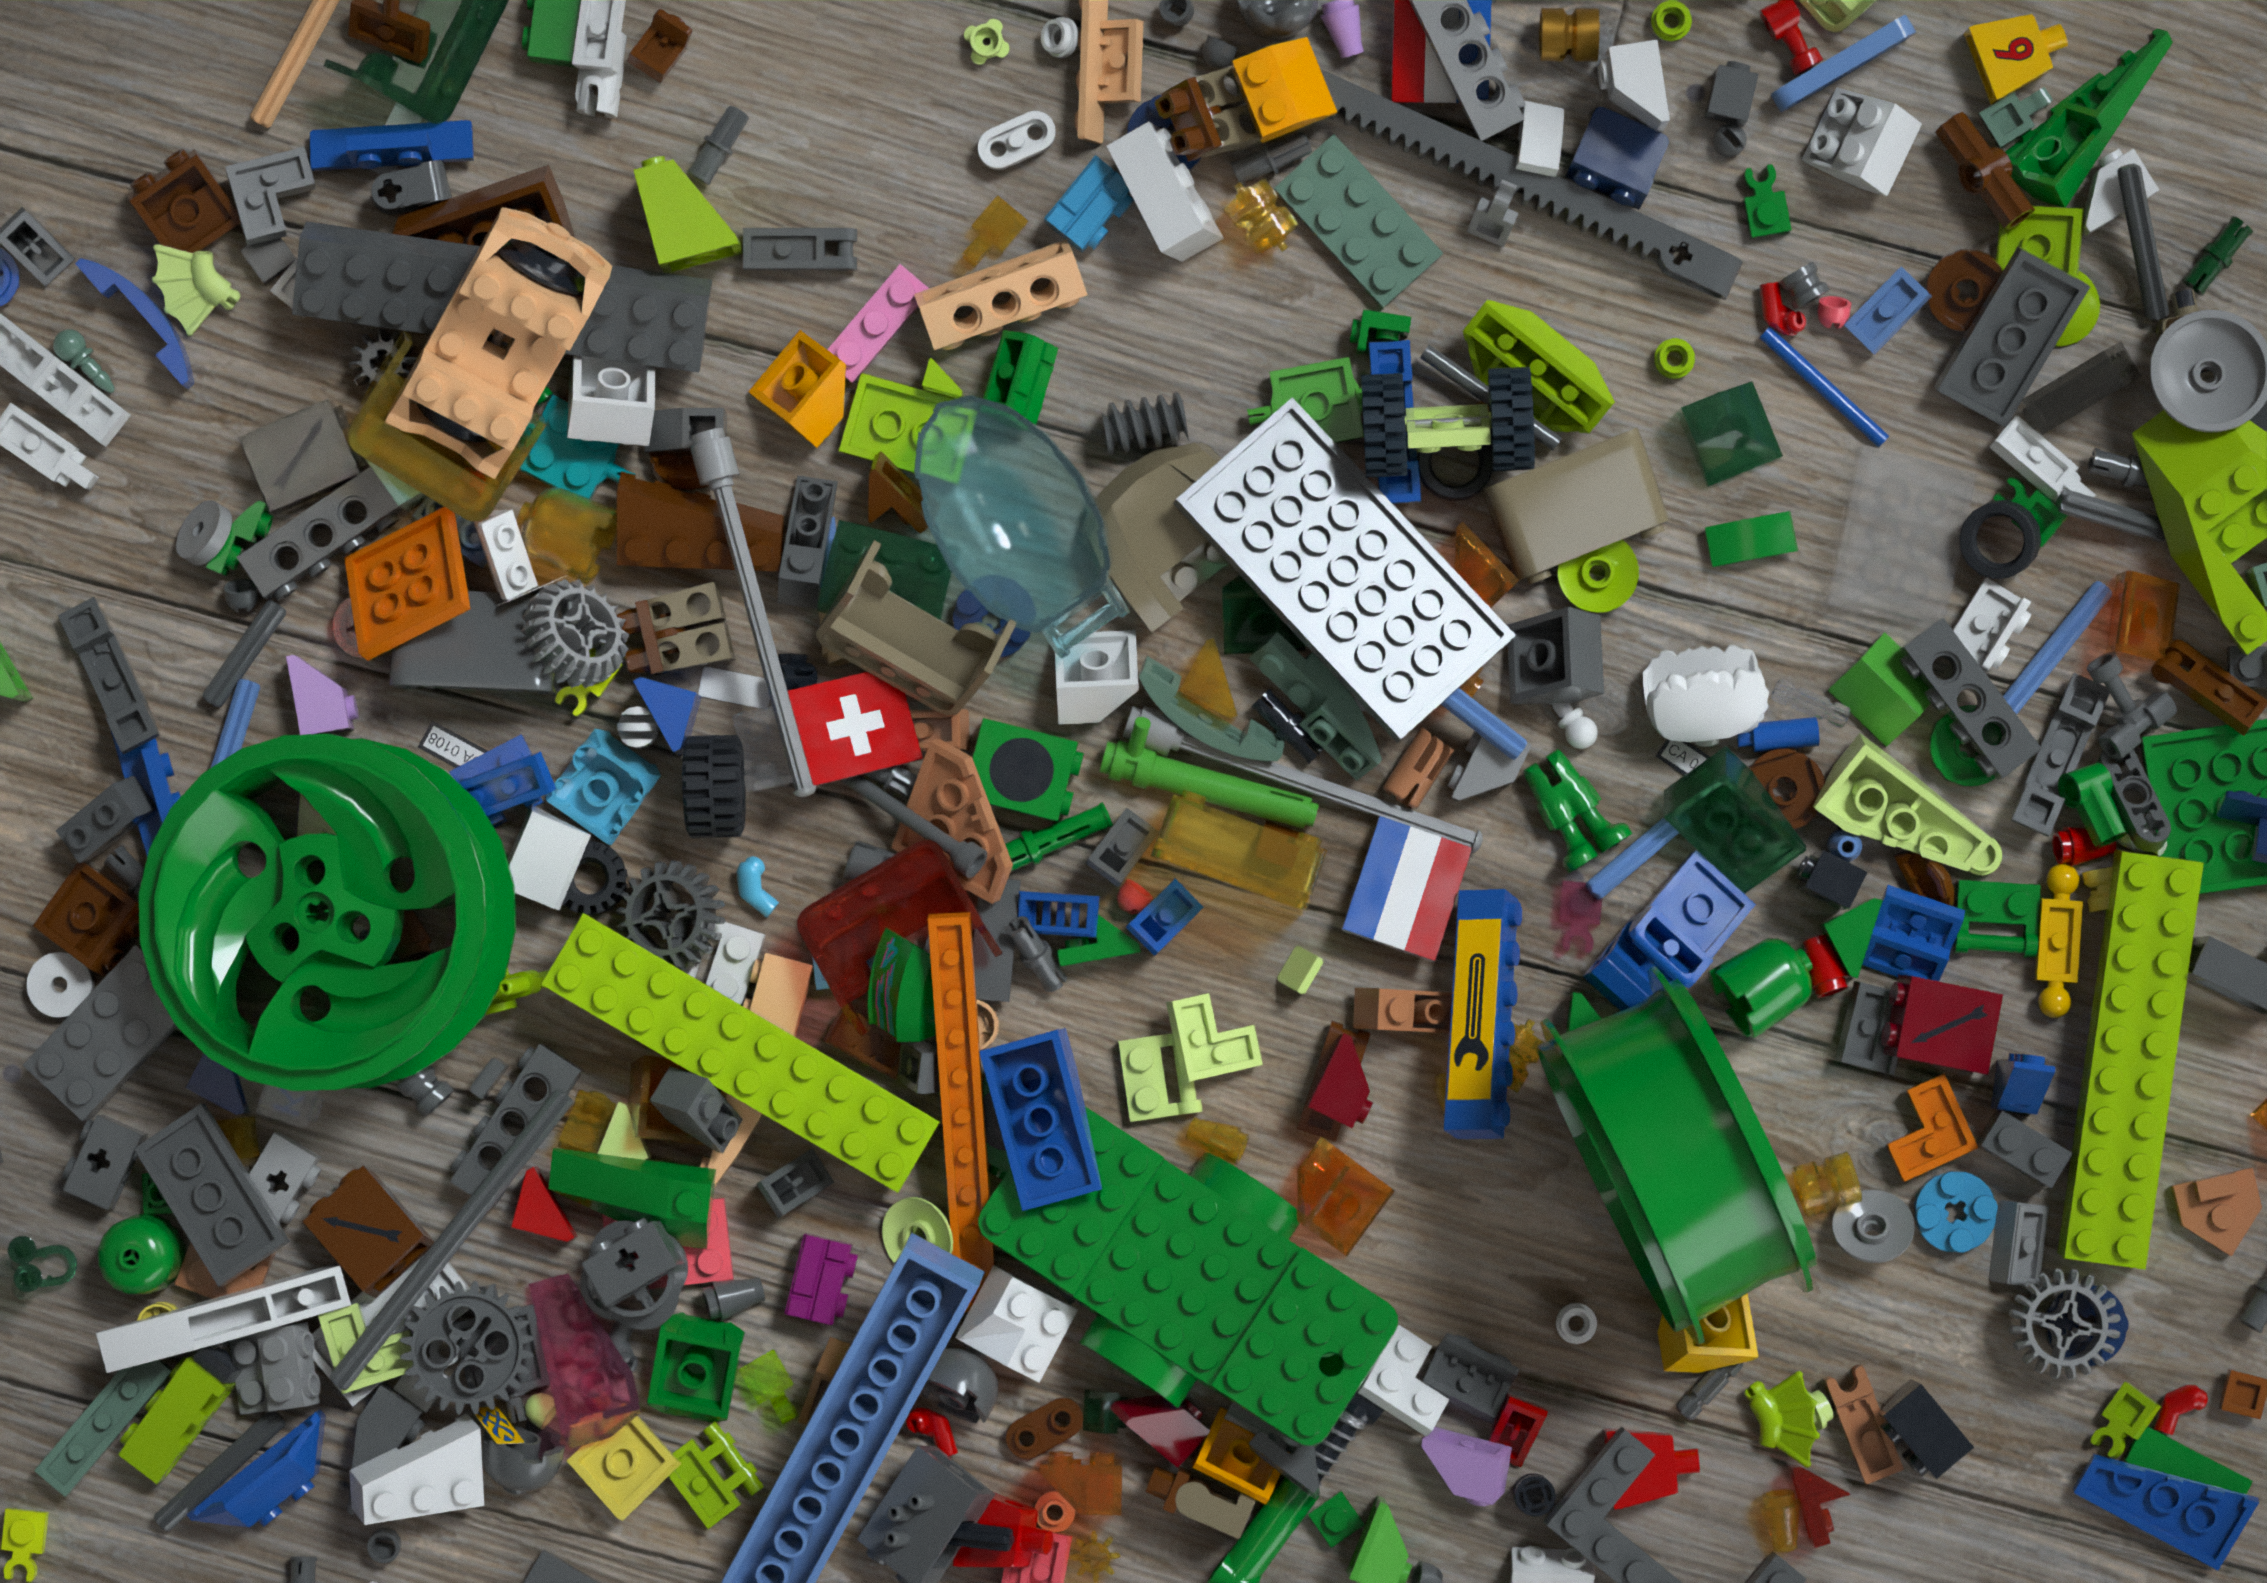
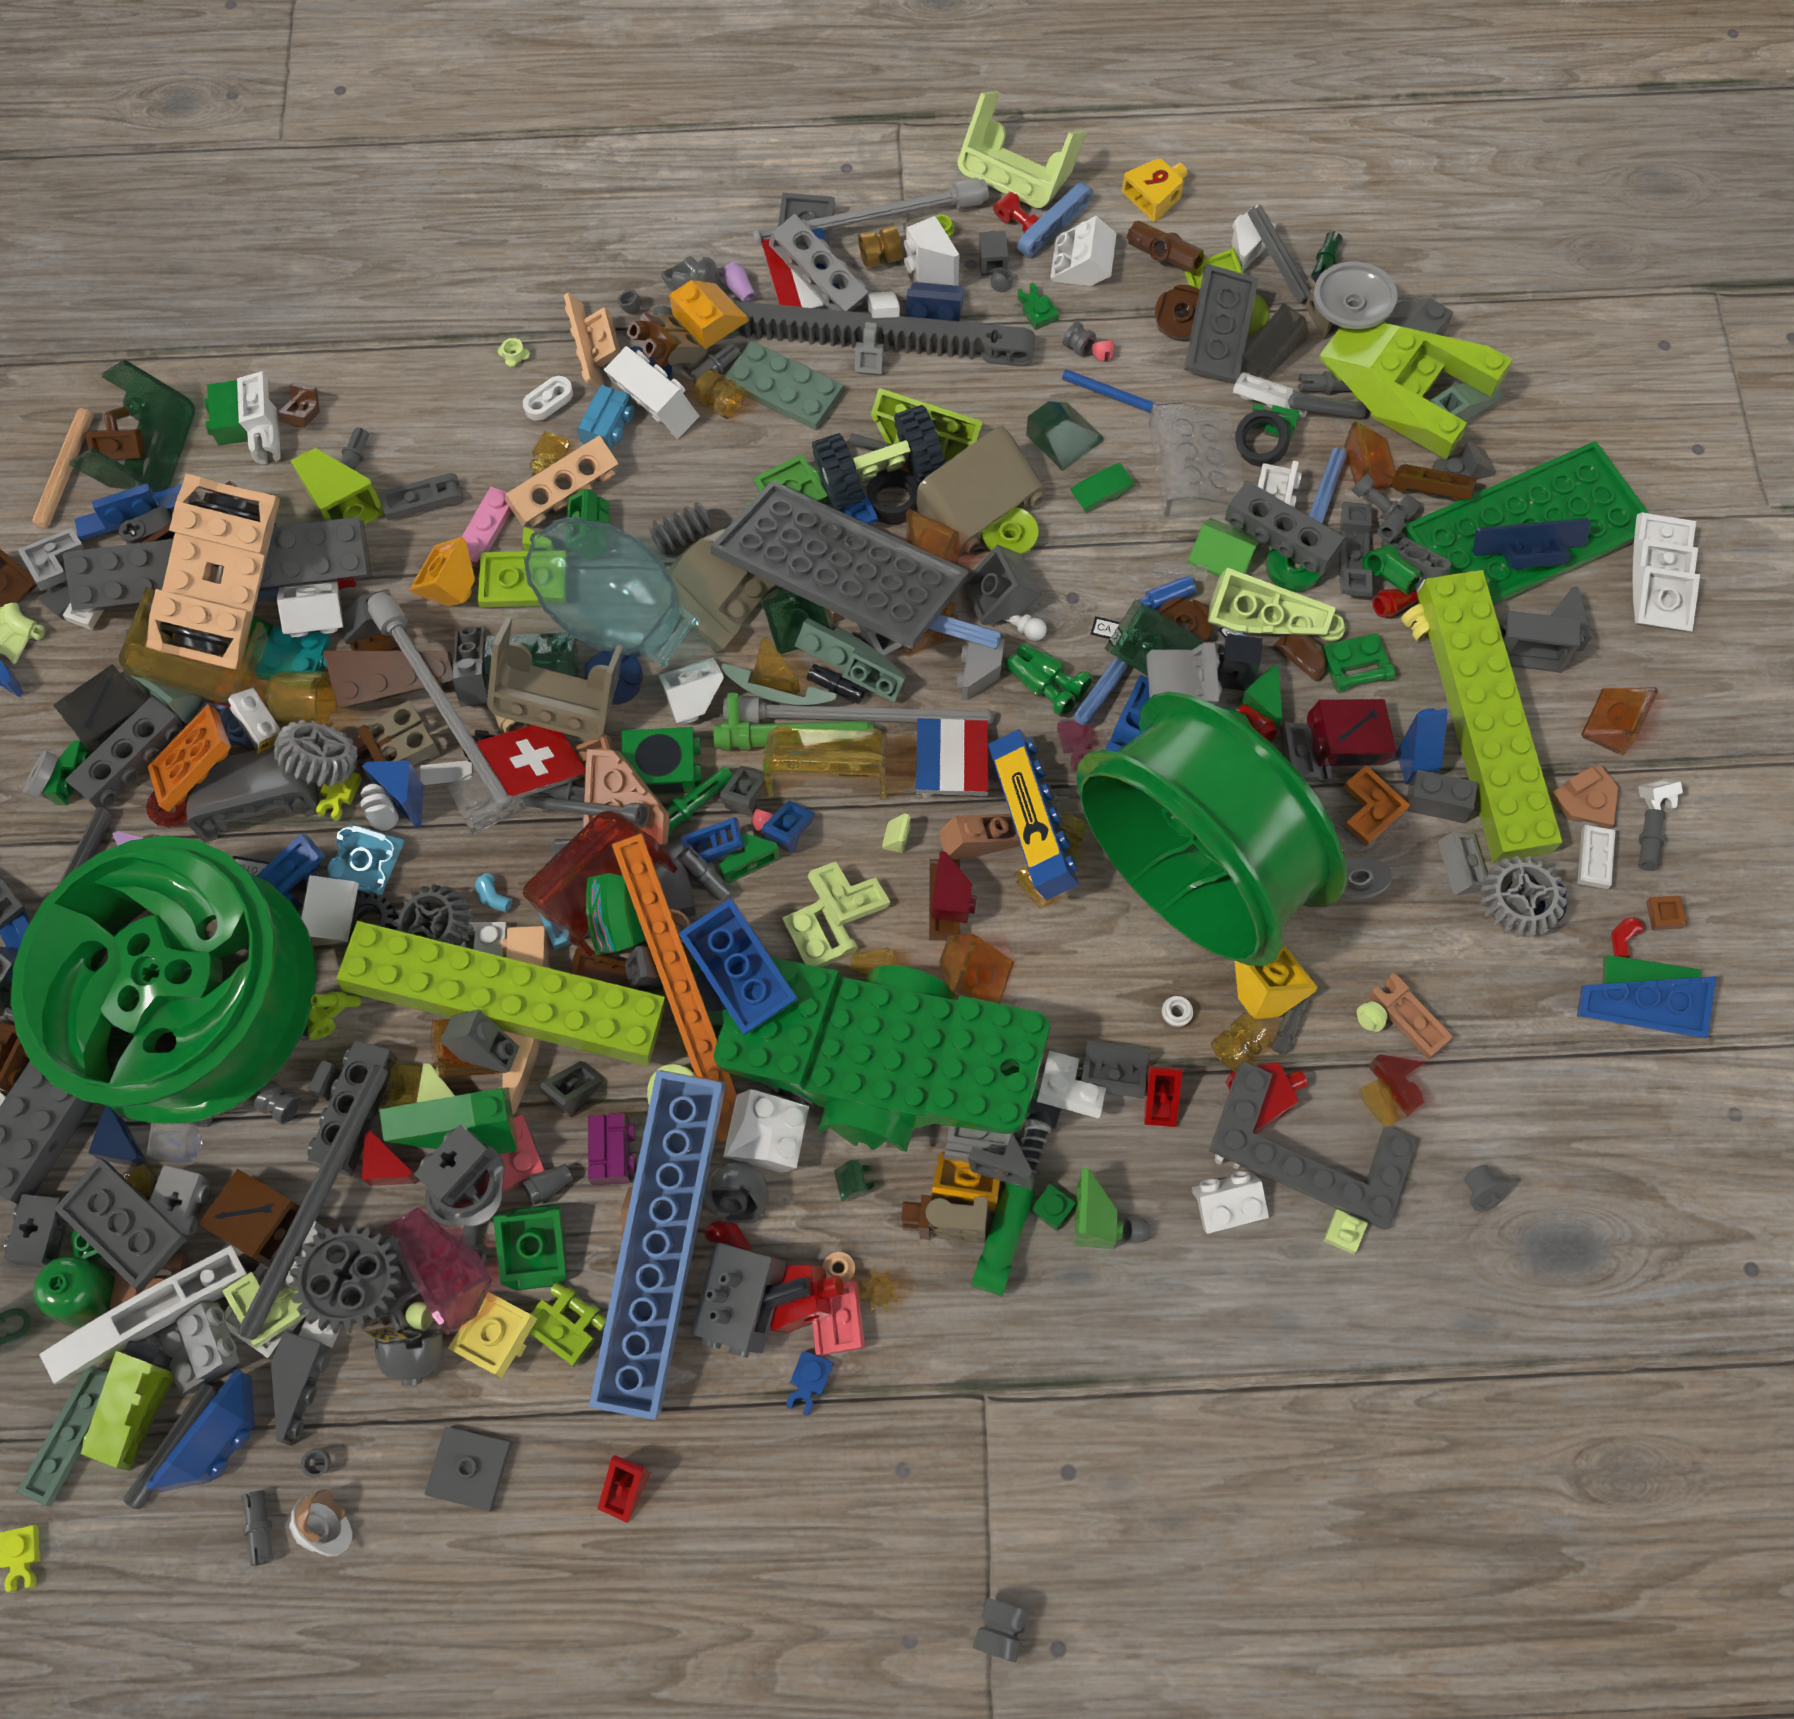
camera: 15 degrees left, 20 degrees down
(241, 594) = (76, 809): dark grey hinge -> none
(423, 1478) = (332, 1391): white wedge -> none
(713, 786) = (440, 826): black tyre -> none
(767, 1381) = (592, 1239): clear neon green plate -> none
(894, 489) = (521, 611): reddish brown slope -> none
(1044, 1428) = (812, 1208): reddish brown plate -> none
(1060, 37) = (559, 335): white plate -> none
(1089, 1484) = (854, 1232): clear orange slope -> none
(1163, 1426) = (901, 1173): dark red slope -> none
(1385, 325) = (815, 430): green bracket -> none
(1418, 769) = (933, 683): nougat arm -> none
(1469, 1465) = (1139, 1132): lavender slope -> none
(1528, 1490) = (1191, 1146): black wheel -> none
(1650, 1385) = (1245, 1038): none -> clear yellow wheel
(1686, 353) = (1013, 396): lime plate -> none
(1705, 694) = (1110, 577): white animal -> none
(1746, 885) = (1185, 672): none -> light grey bracket
(1777, 314) = (1067, 361): red arm -> none
(1785, 1416) = (1353, 1026): lime arm -> none
(1887, 310) = (1137, 336): medium blue plate -> none
(1912, 935) = (1305, 682): blue slope -> none
(1924, 1431) = (1459, 999): black slope -> none
(1931, 1212) = (1416, 839): dark azure plate -> none
(2010, 117) = (1171, 218): sand green plate -> none
(2058, 940) = (1407, 664): yellow plate -> none
(2064, 148) = (1216, 211): green wedge -> none
(2128, 1414) = (1592, 950): lime plate -> none
(2190, 1291) = (1596, 857): none -> white plate

